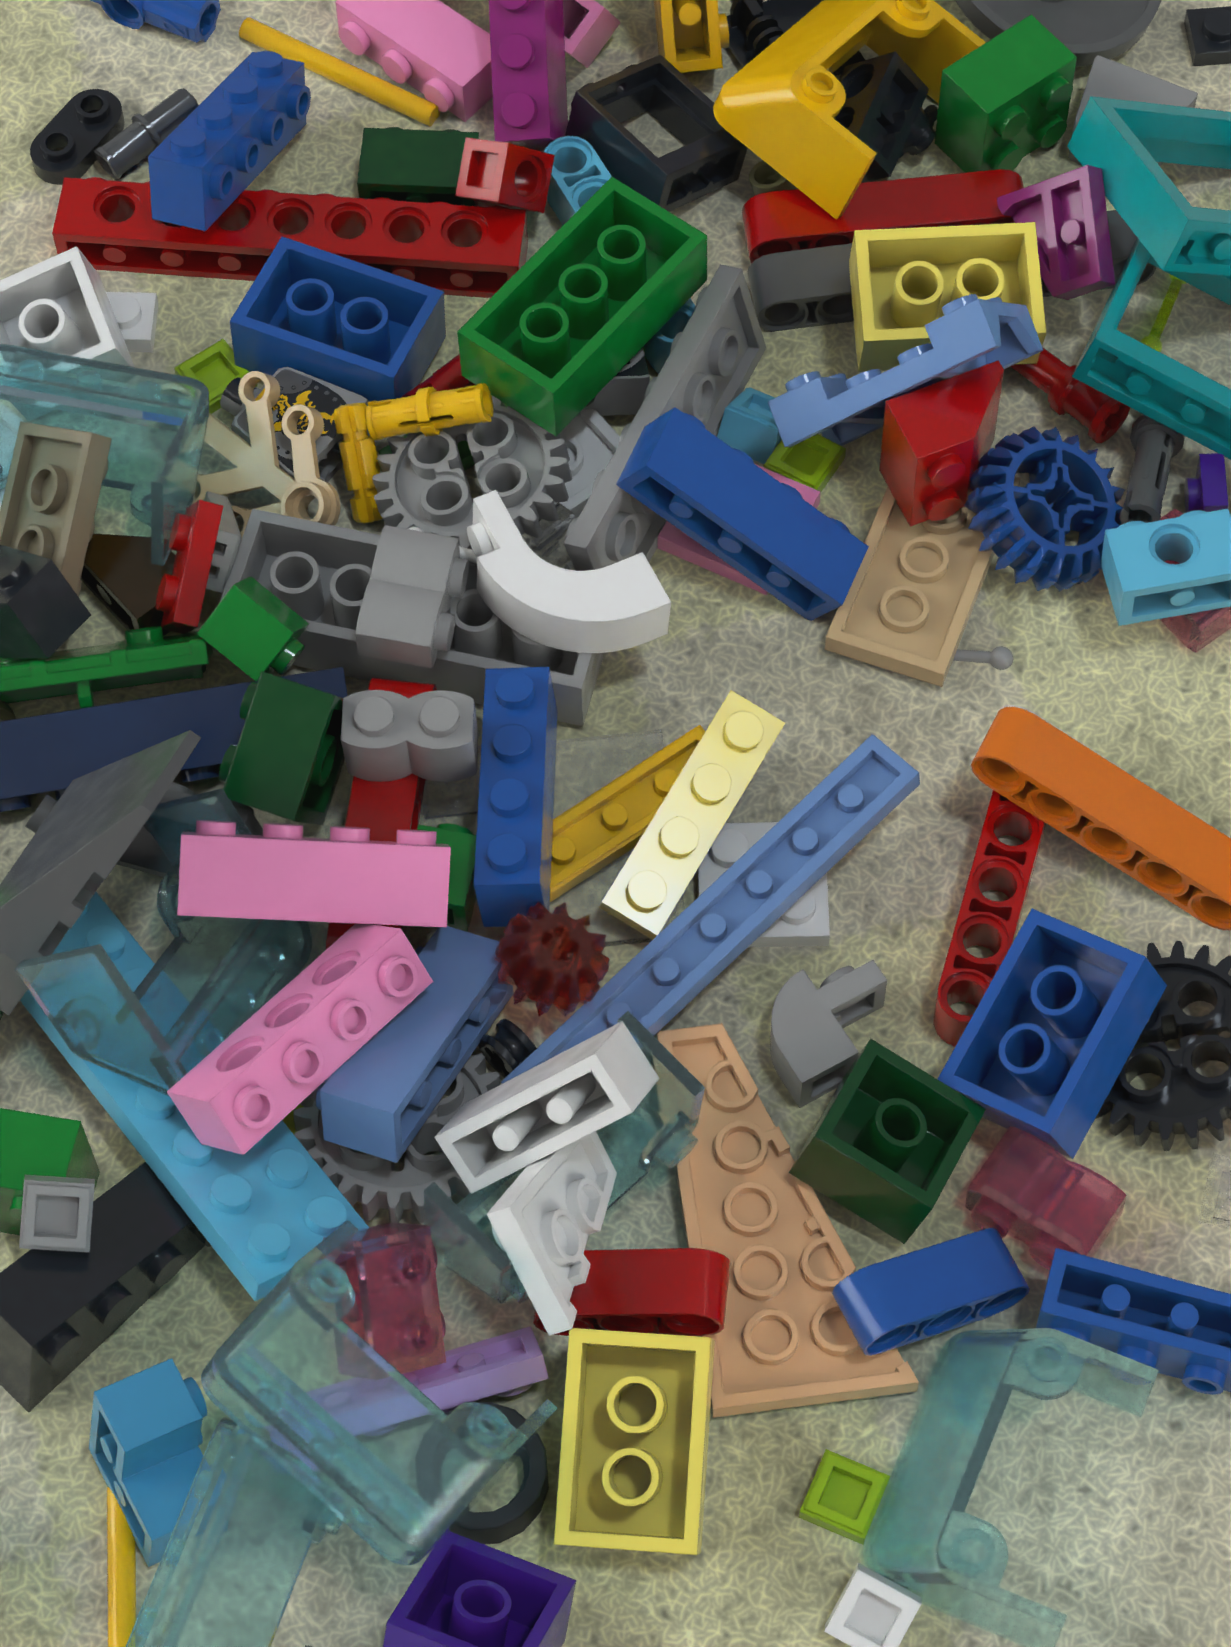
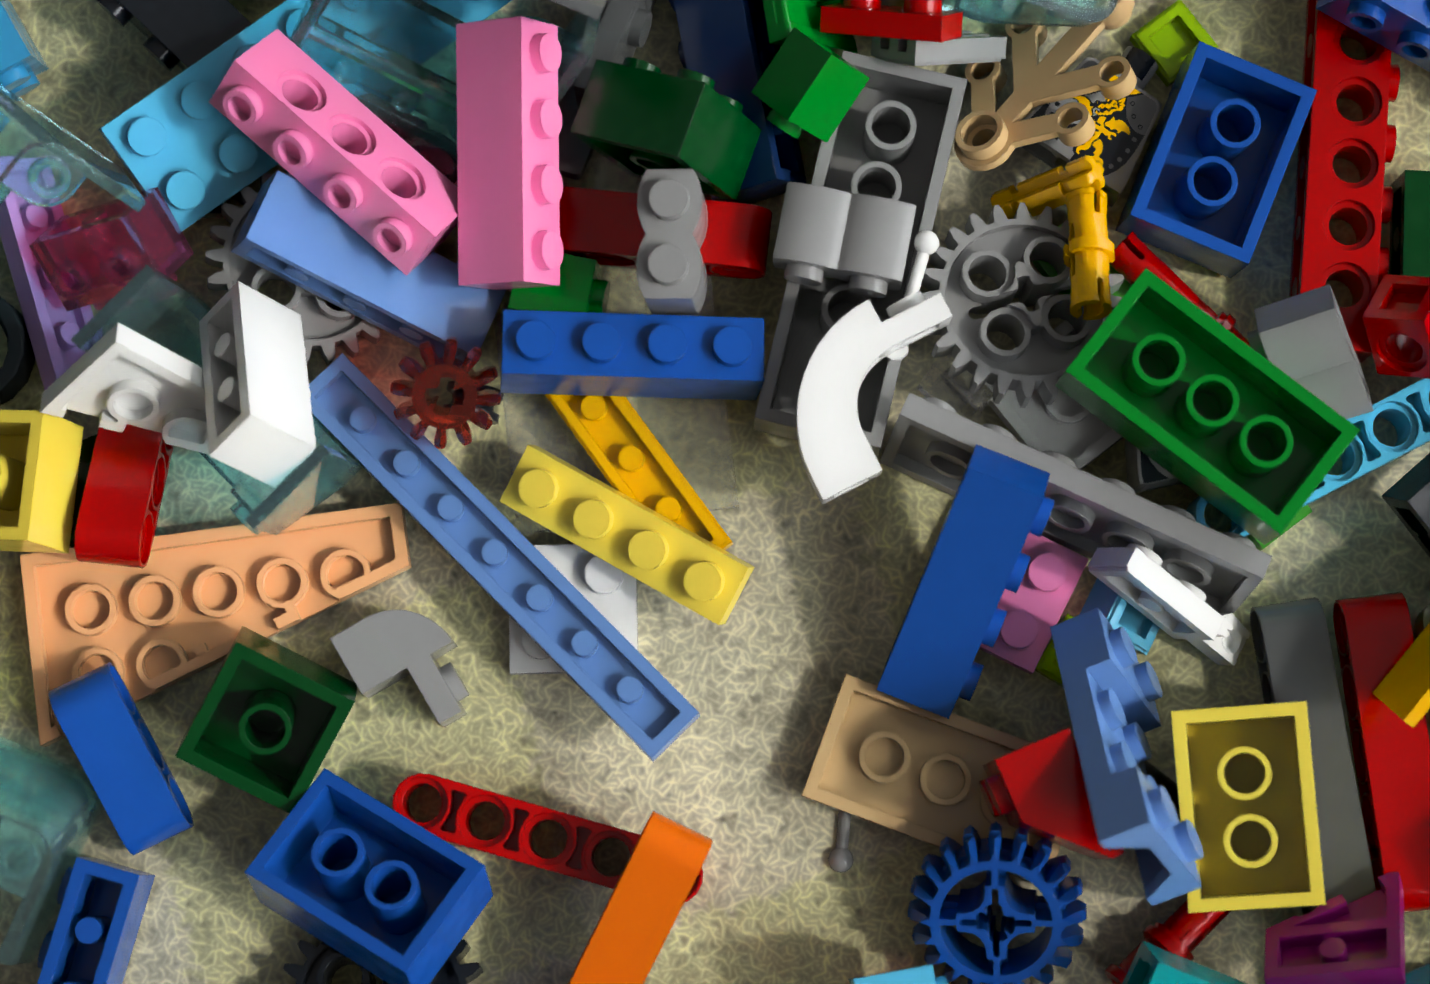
camera: 90 degrees right, 20 degrees up
(506, 1048) = (383, 361): black bush -> none
(514, 230) = (1313, 347): none -> light grey brick
(752, 374) = (1169, 602): none -> white hinge
(1043, 1198) = (209, 886): clear pink brick -> none

